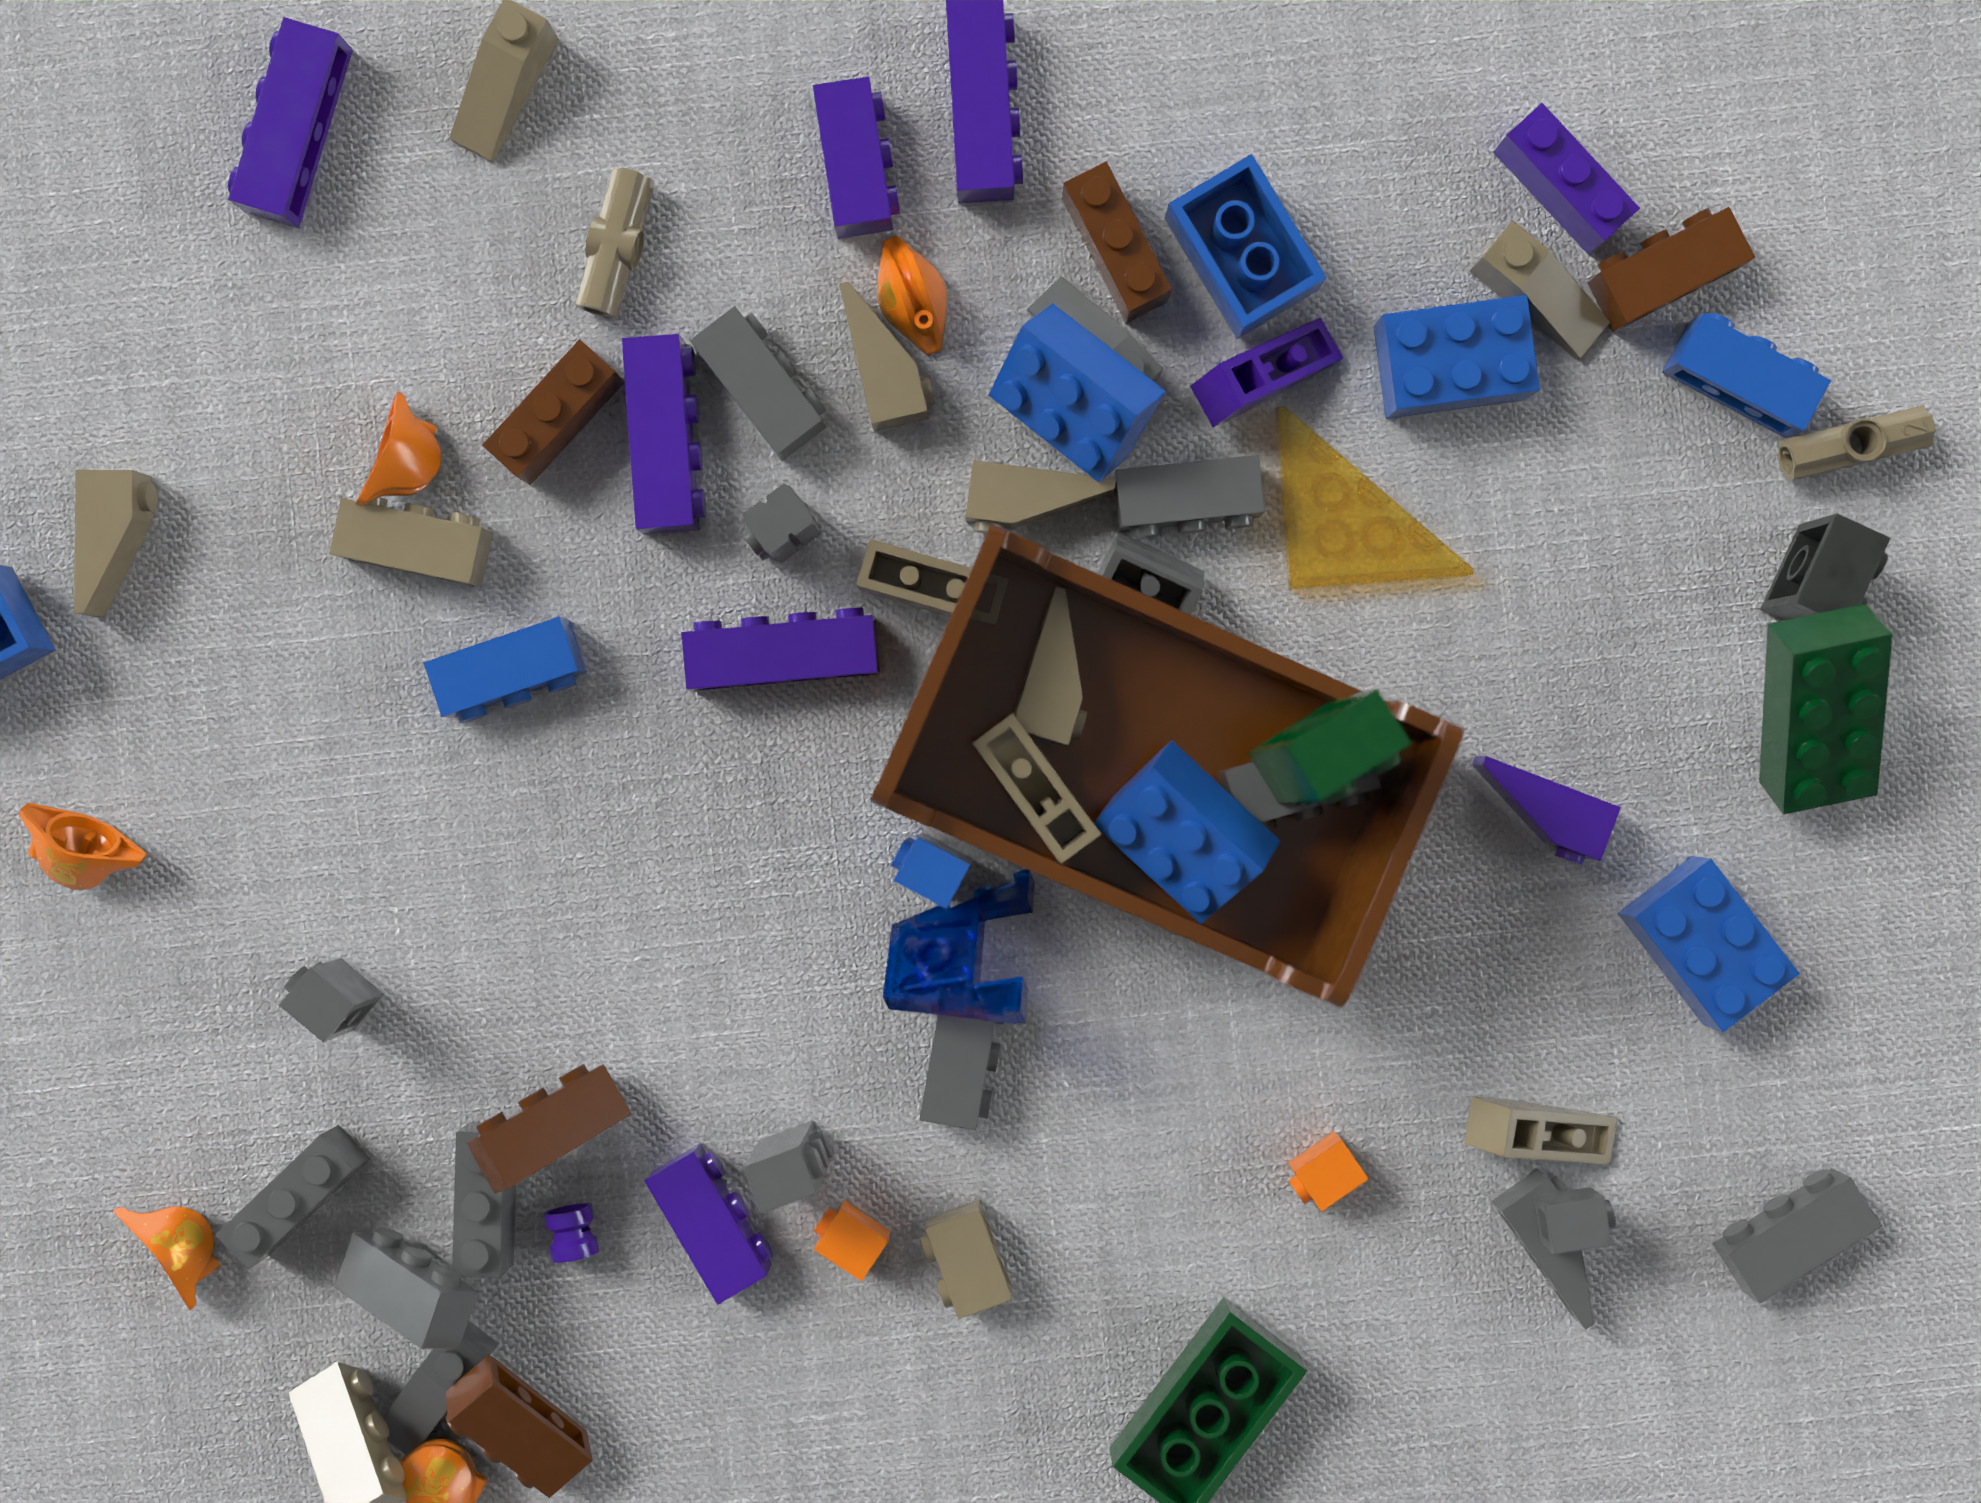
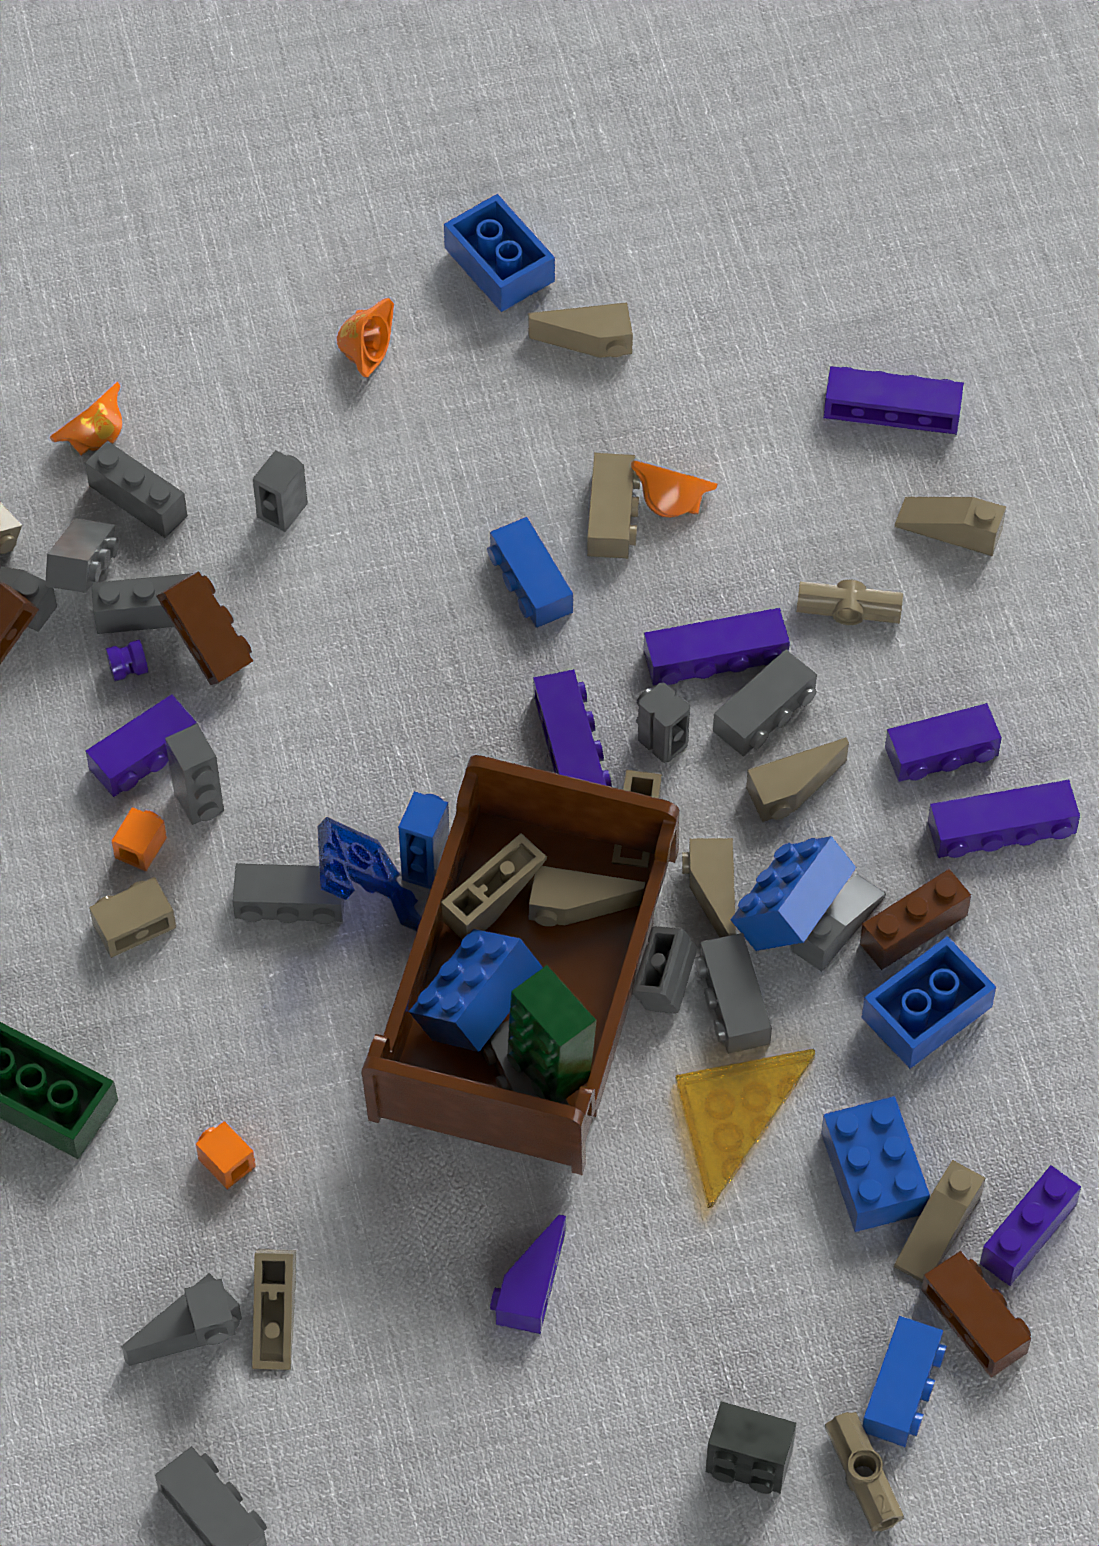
camera: 80 degrees right, 30 degrees down
(553, 413) = (718, 576): reddish brown brick -> none
(912, 295) = (852, 796): orange hat -> none
(1265, 371) = (839, 1035): dark purple slope -> none
(1708, 943) = (440, 1408): blue brick -> none
(1824, 708) = (639, 1442): dark green brick -> none

